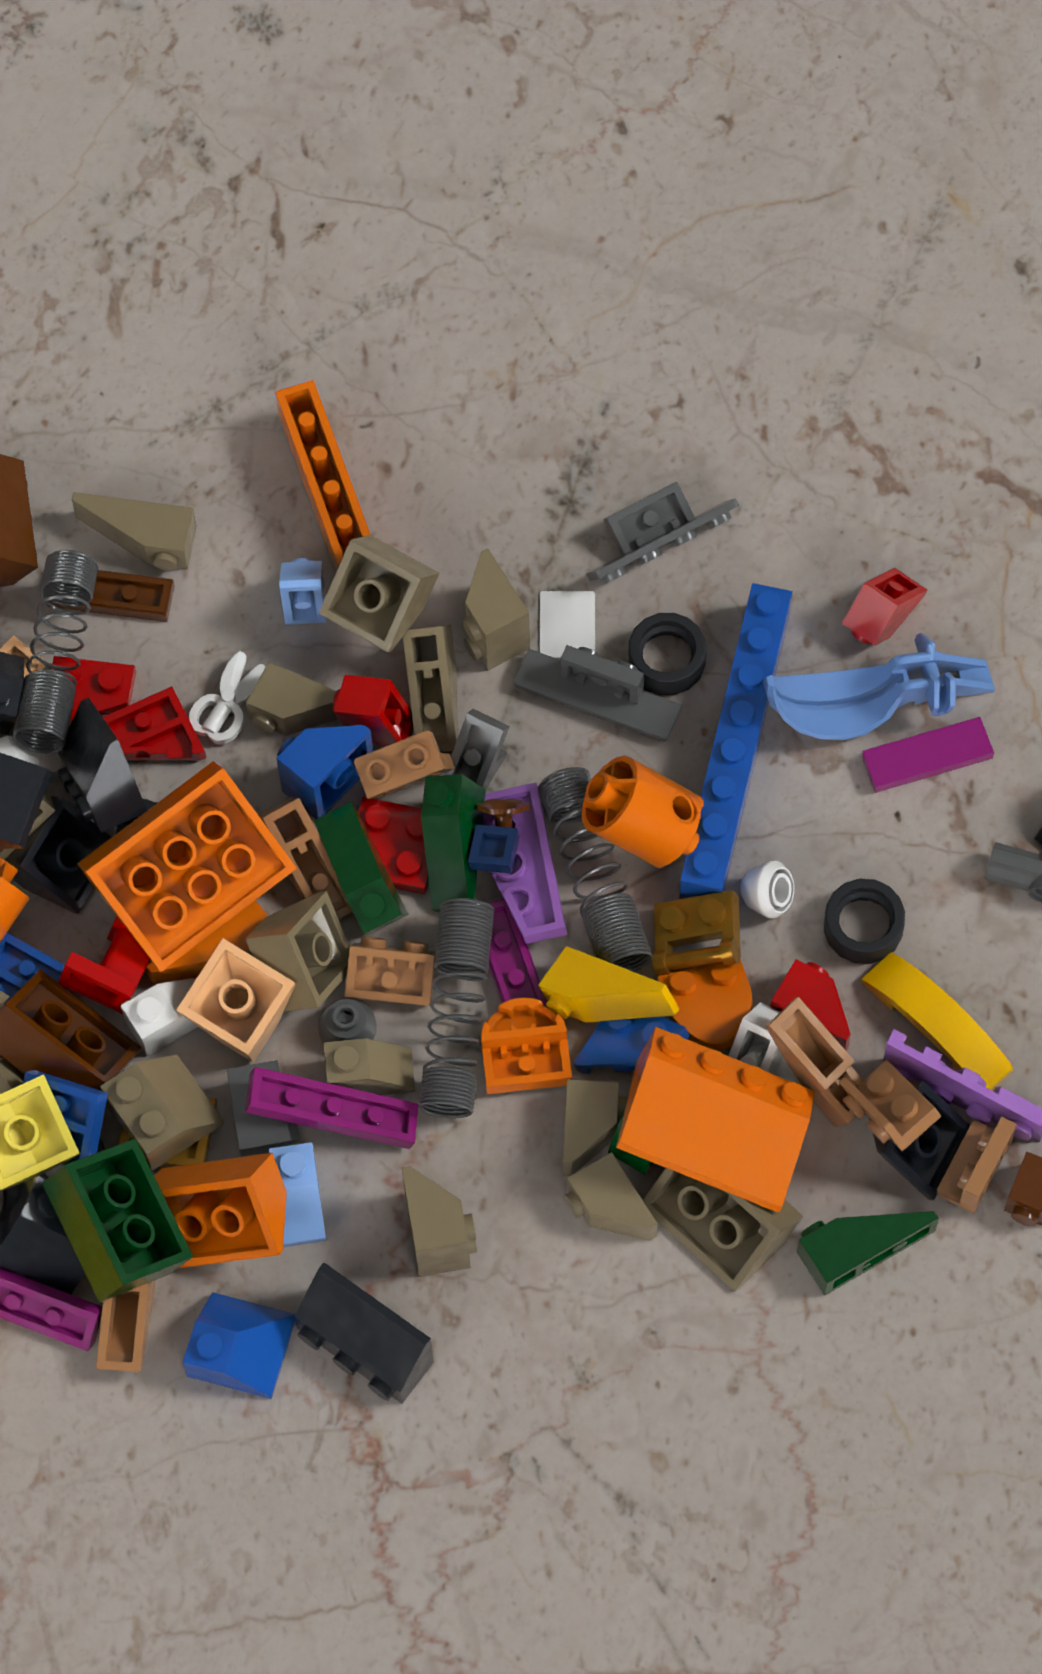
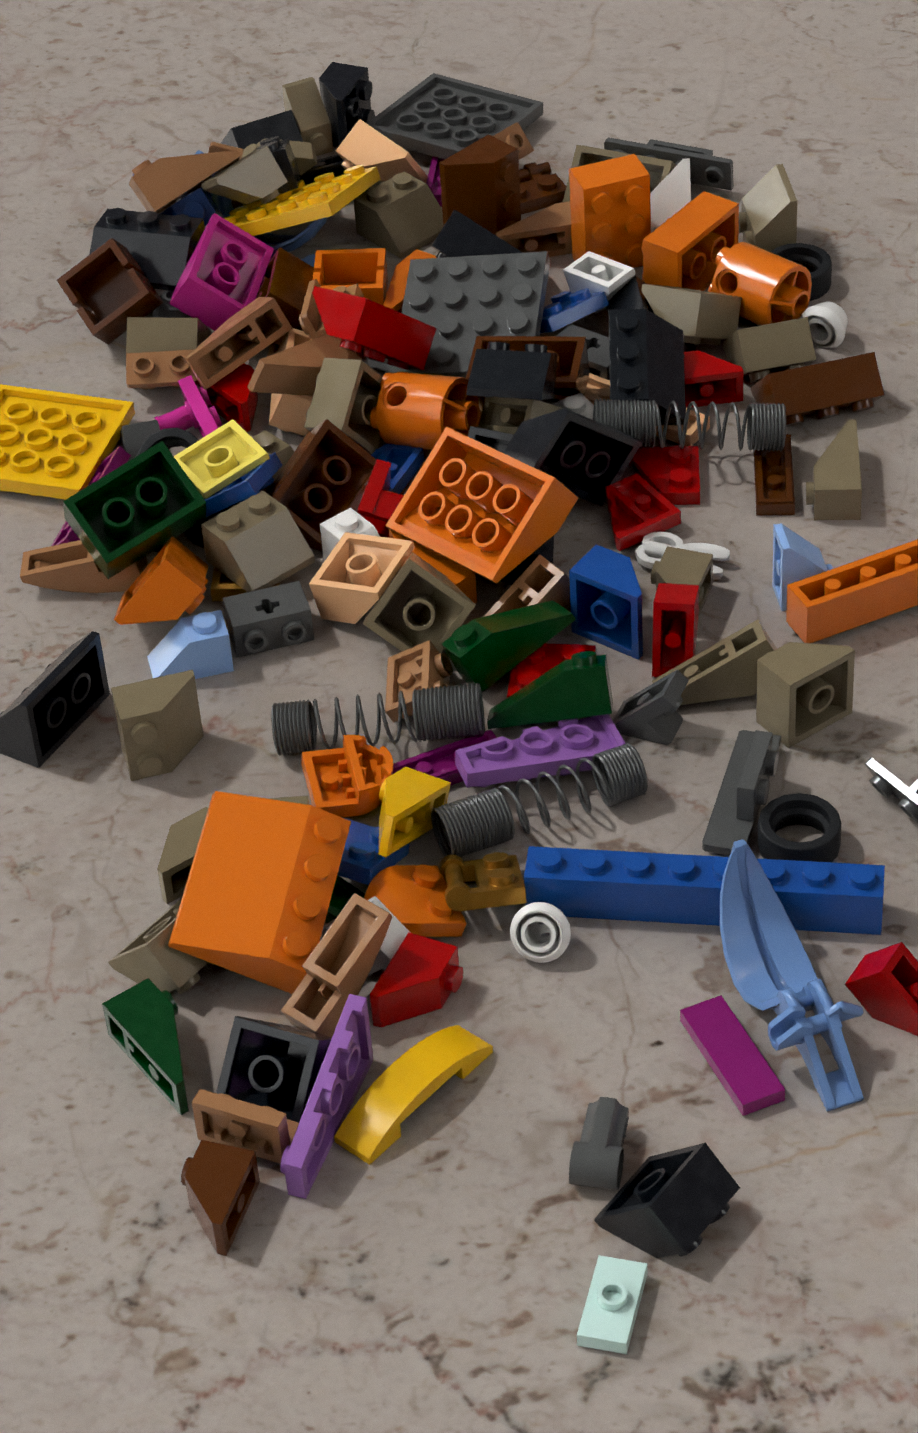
camera: 85 degrees right, 25 degrees down
(239, 1345) = (42, 627): blue slope -> none
(331, 1108) = (265, 645): magenta plate -> none
(347, 1021) = (361, 665): dark grey cone -> none
(369, 1066) = (316, 672): dark tan slope -> none
(378, 592) = (790, 585): dark tan slope -> none
(401, 765) = (618, 639): medium nougat bracket -> none
(493, 849) = (543, 717): dark blue plate -> none
(503, 810) = (586, 719): reddish brown plant -> none
(566, 620) = (822, 770): white sticker -> none
(642, 811) = (598, 783): orange cylinder -> none
(868, 891) = (520, 988): black tyre -> none
(892, 1105) = (282, 1007): medium nougat bracket -> none

